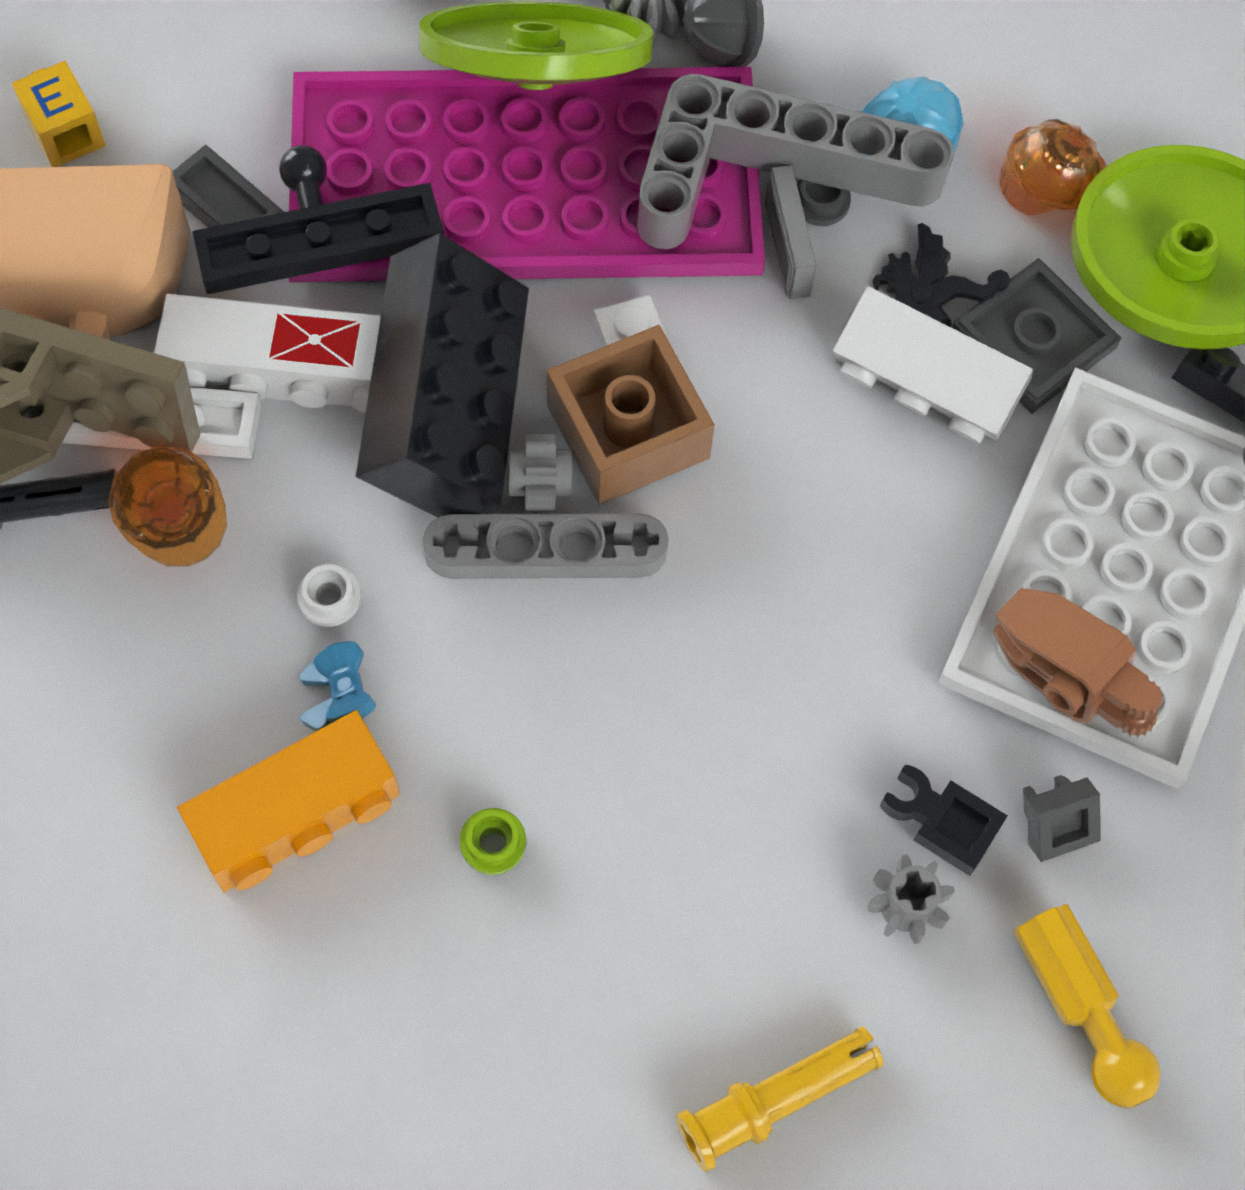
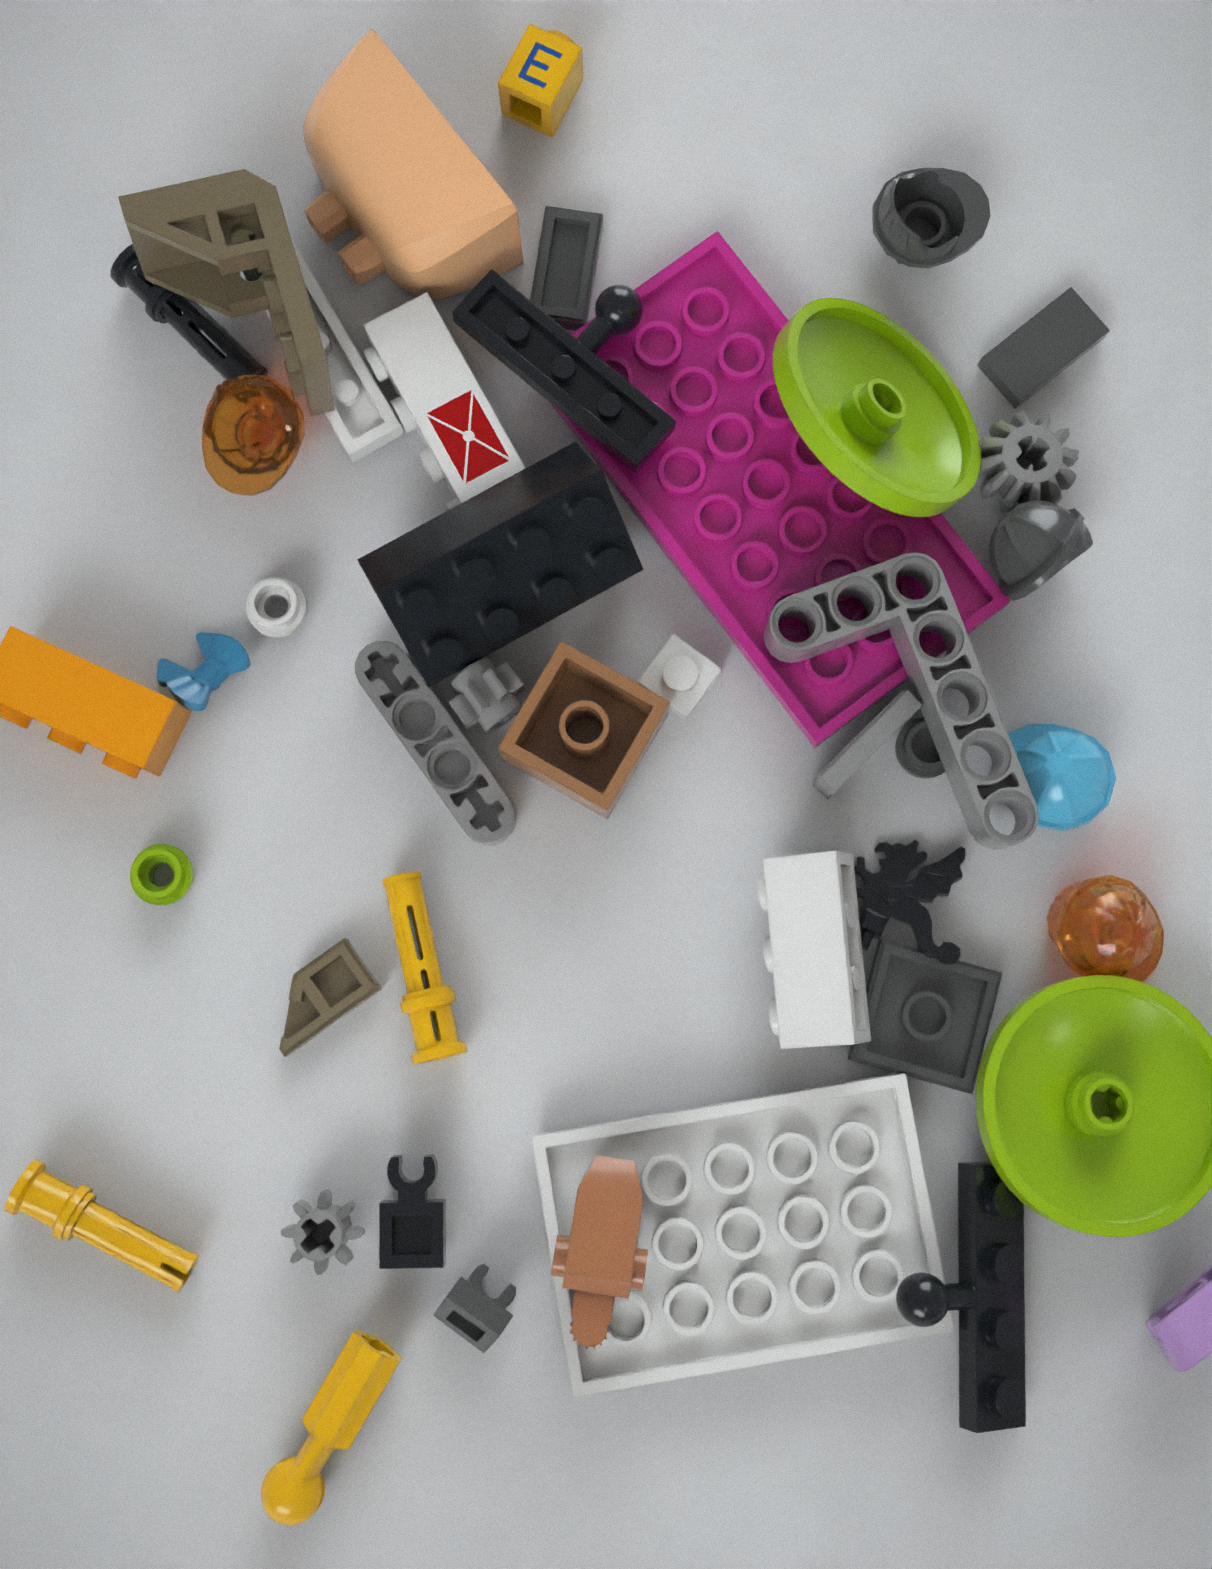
camera: 60 degrees right, 15 degrees up
(698, 773) = (325, 993): none -> dark tan tile
(762, 686) = (403, 894): none -> yellow pin

